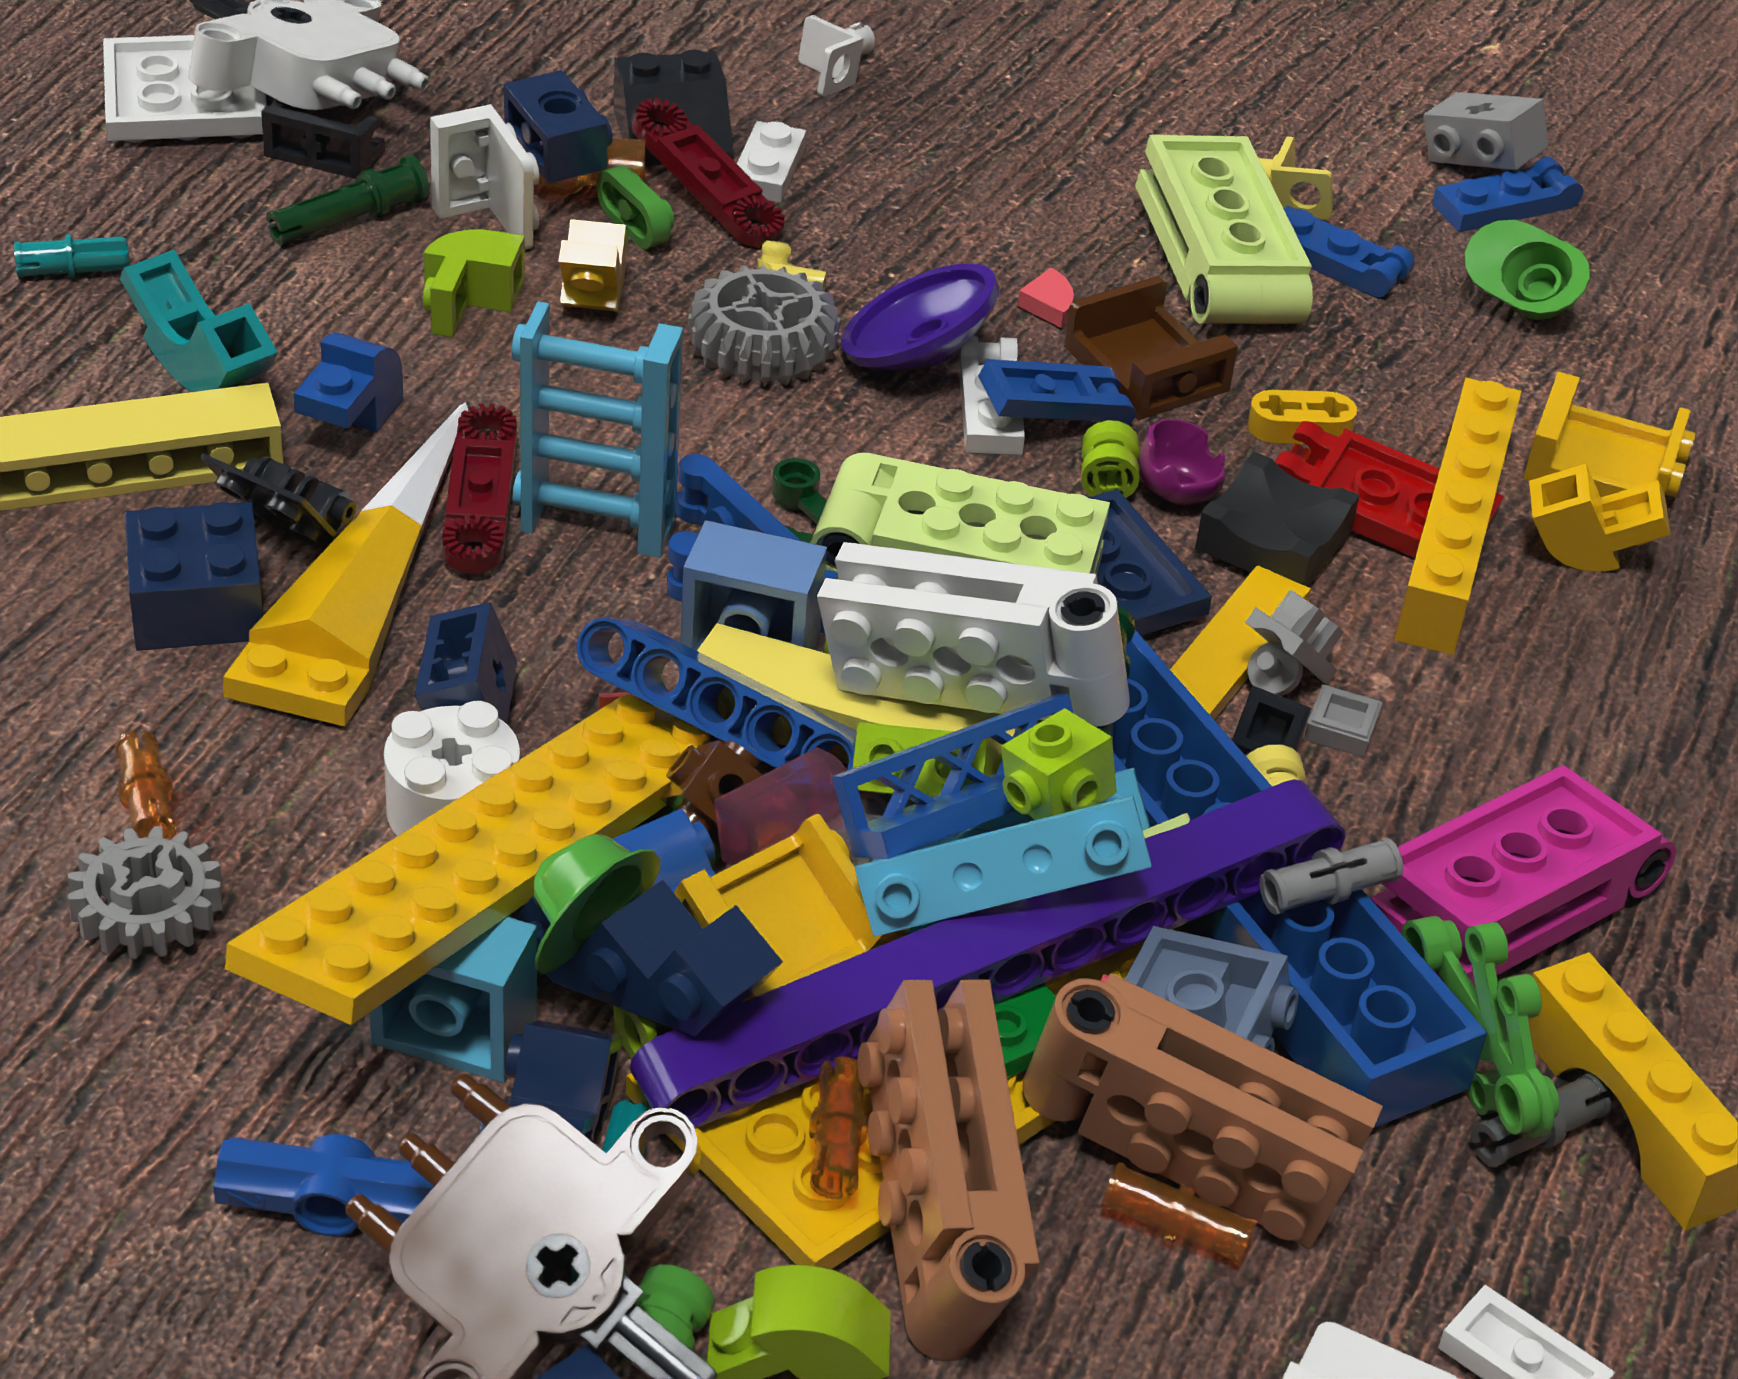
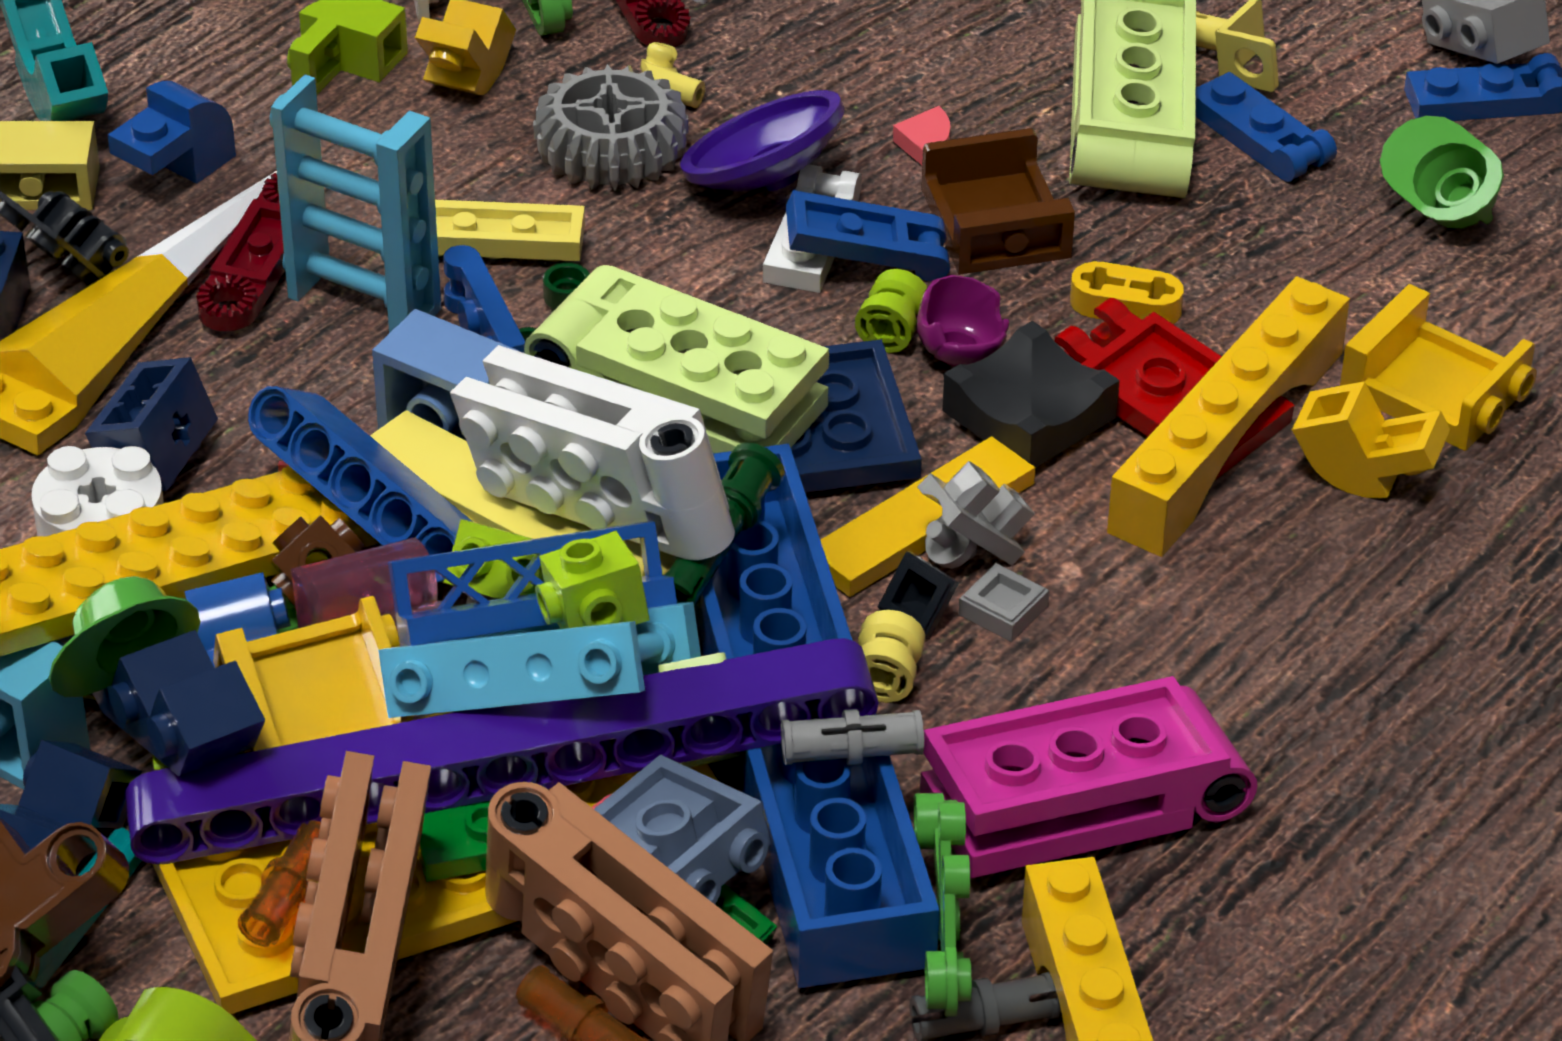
camera: 20 degrees right, 0 degrees up
(723, 433) = (512, 229): none -> light yellow plate

